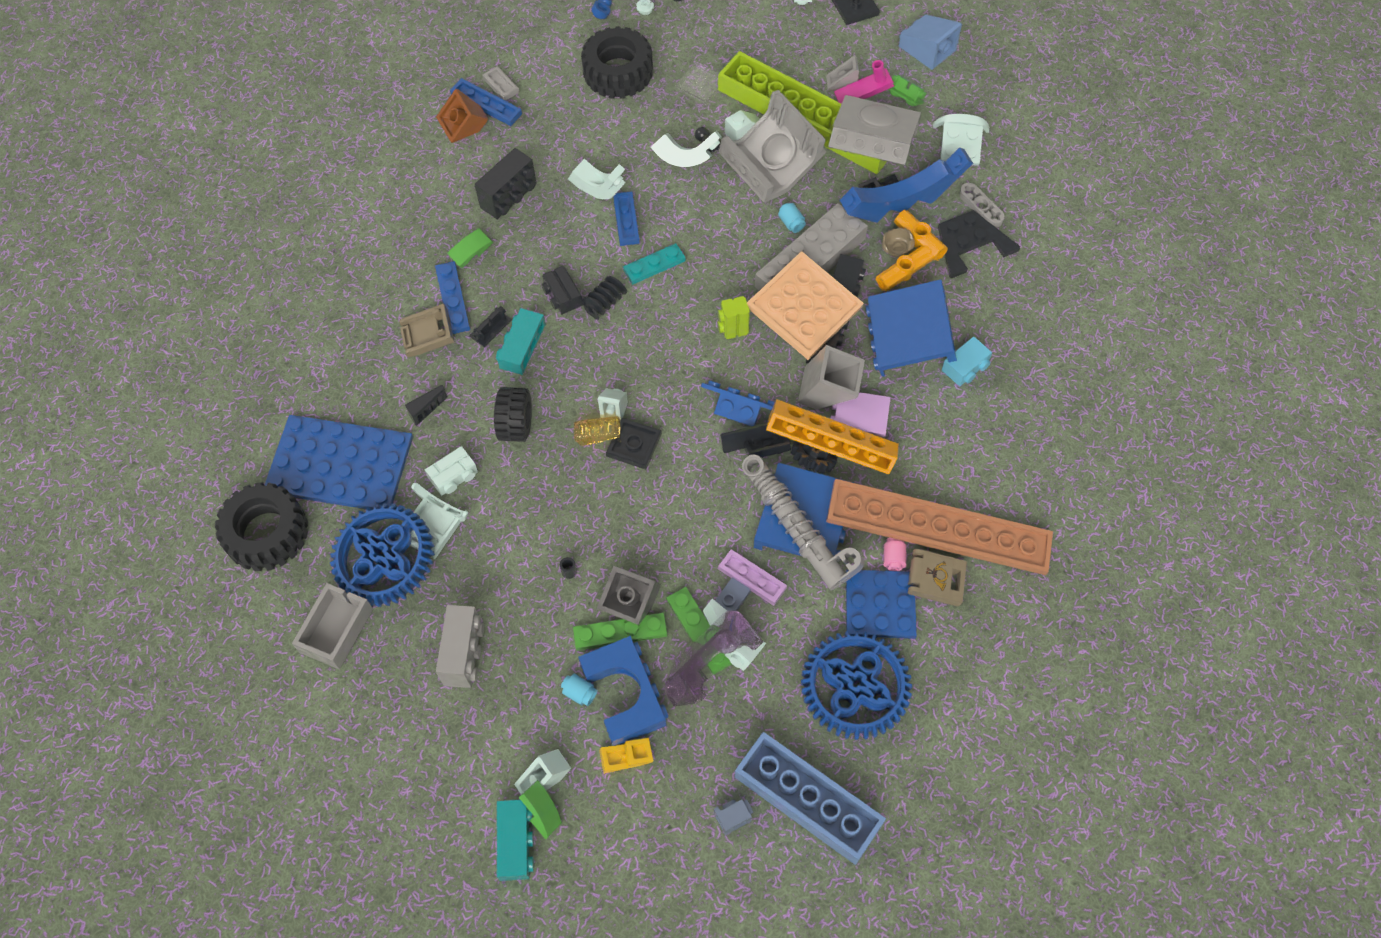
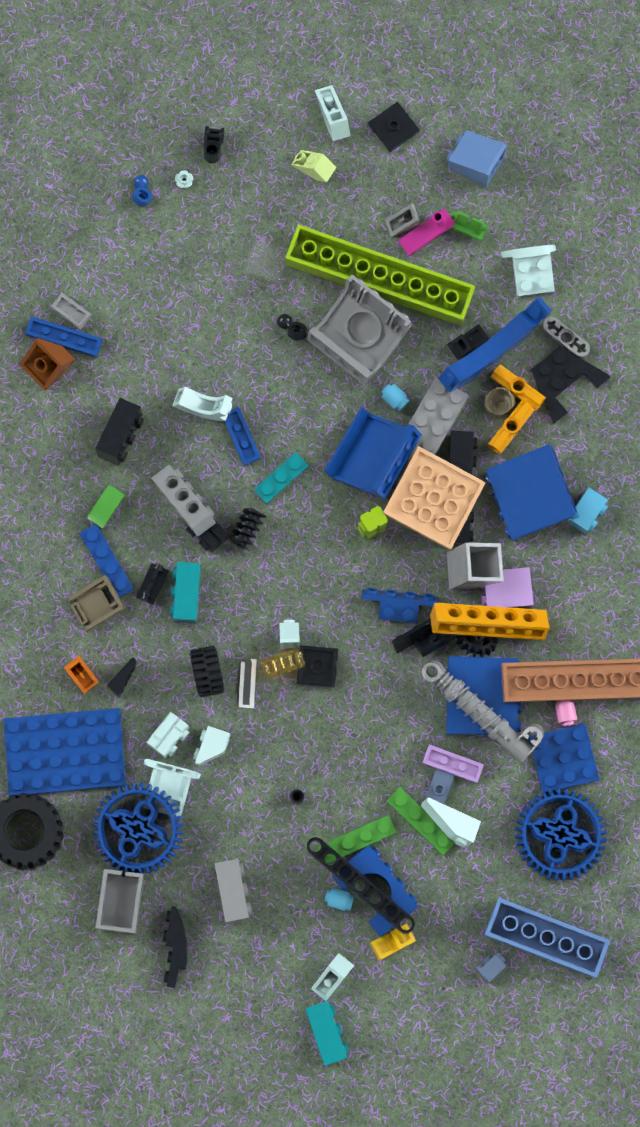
camera: 20 degrees left, 15 degrees up
(380, 685) = (175, 938): none -> black slope
(383, 390) = (81, 674): none -> orange slope
(494, 493) = (213, 745): none -> light aqua slope
(539, 803) = (342, 1003): bright green slope -> none
(548, 254) = (197, 521): none -> light grey brick
(554, 444) = (247, 683): none -> sticker
(609, 685) = (356, 876): none -> black beam
(617, 80) = (176, 239): black tyre -> none
(628, 595) = (356, 809): flat silver slope -> none
(677, 155) = (277, 355): light aqua arch -> none
(723, 636) = (450, 829): windscreen -> none
(739, 124) = (322, 303): light aqua slope -> none
(752, 255) = (372, 453): none -> blue panel
(771, 16) = (314, 165): none -> yellowish green slope
(874, 129) = (451, 286): light grey panel -> none
(934, 577) = (603, 725): dark tan container -> none

